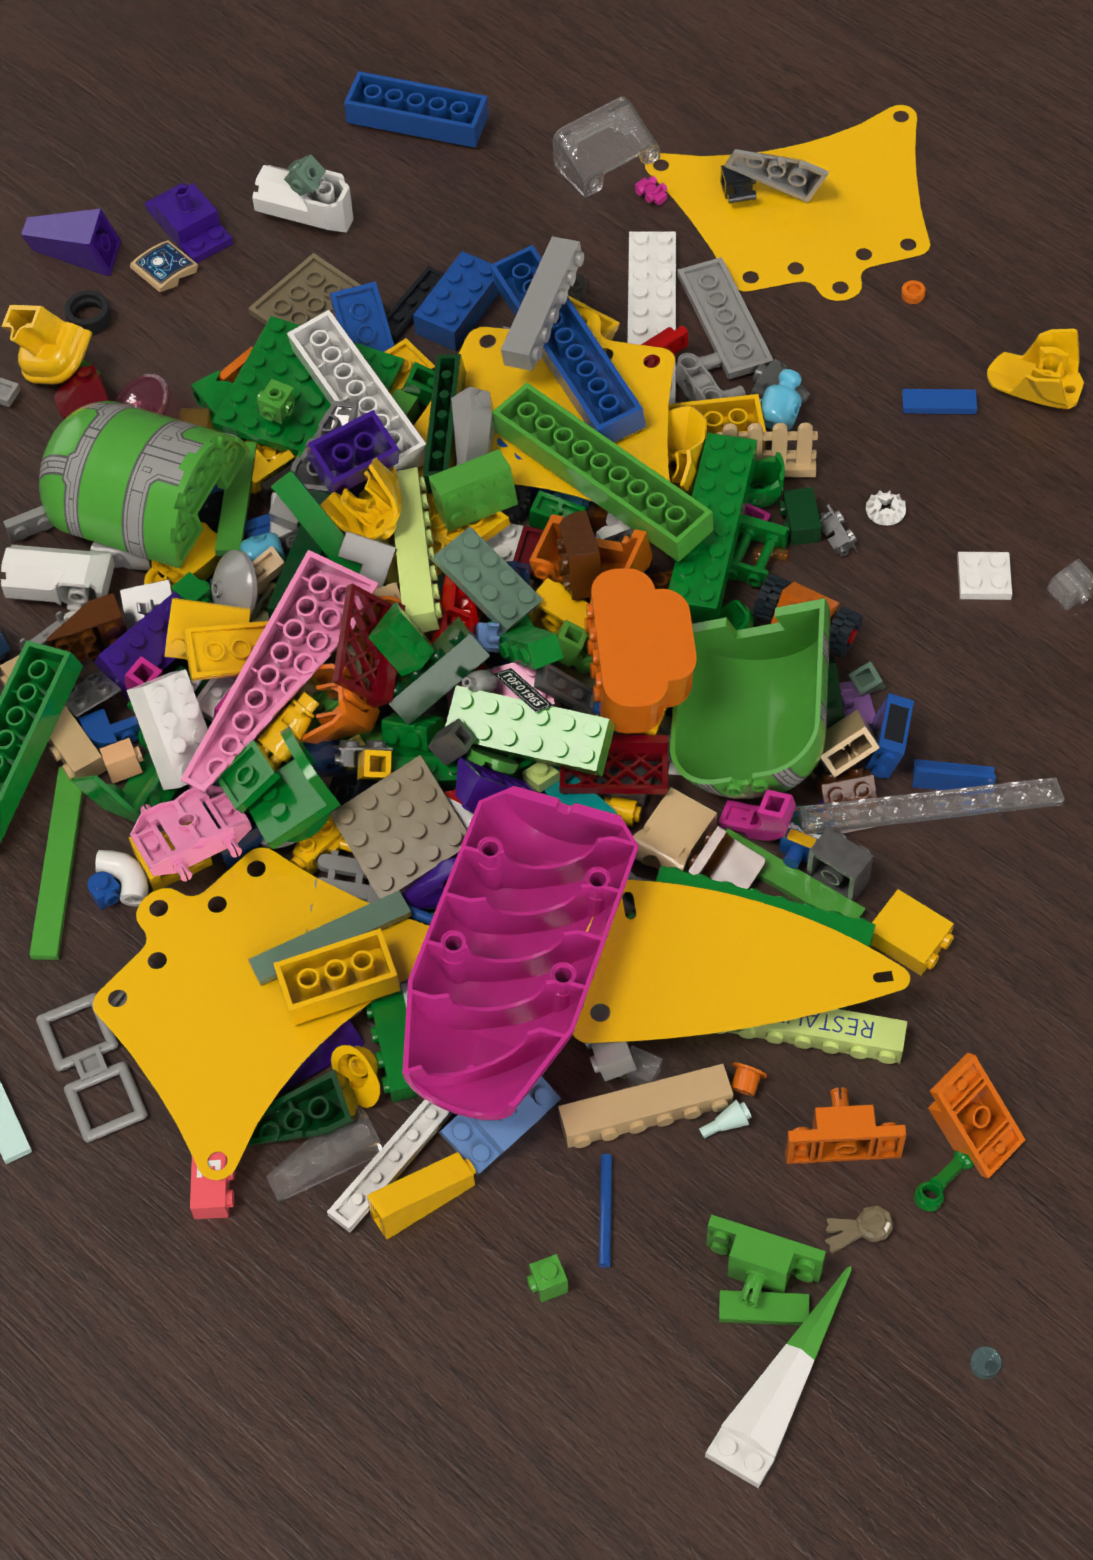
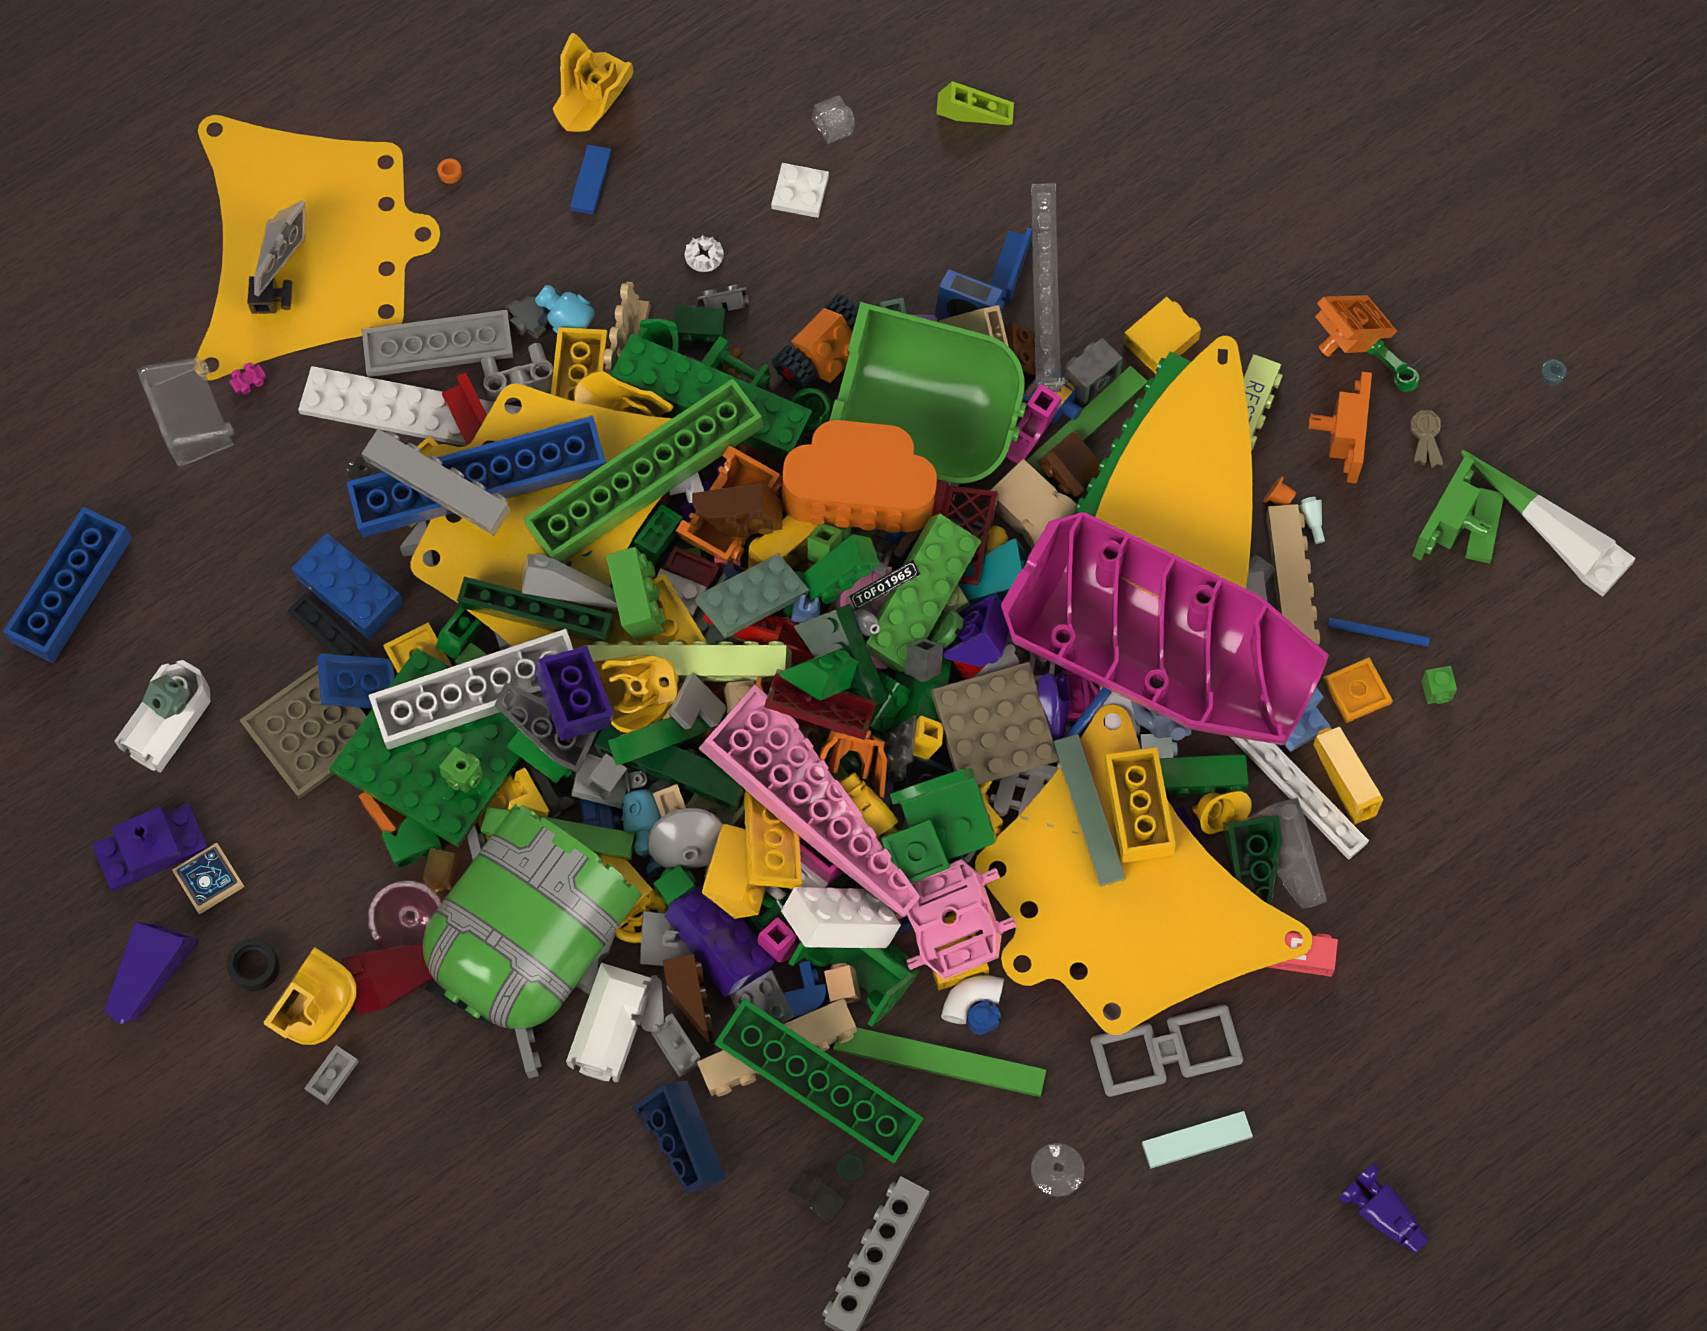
camera: 80 degrees left, 10 degrees up
(530, 1198) = (1357, 690): none -> light orange tile

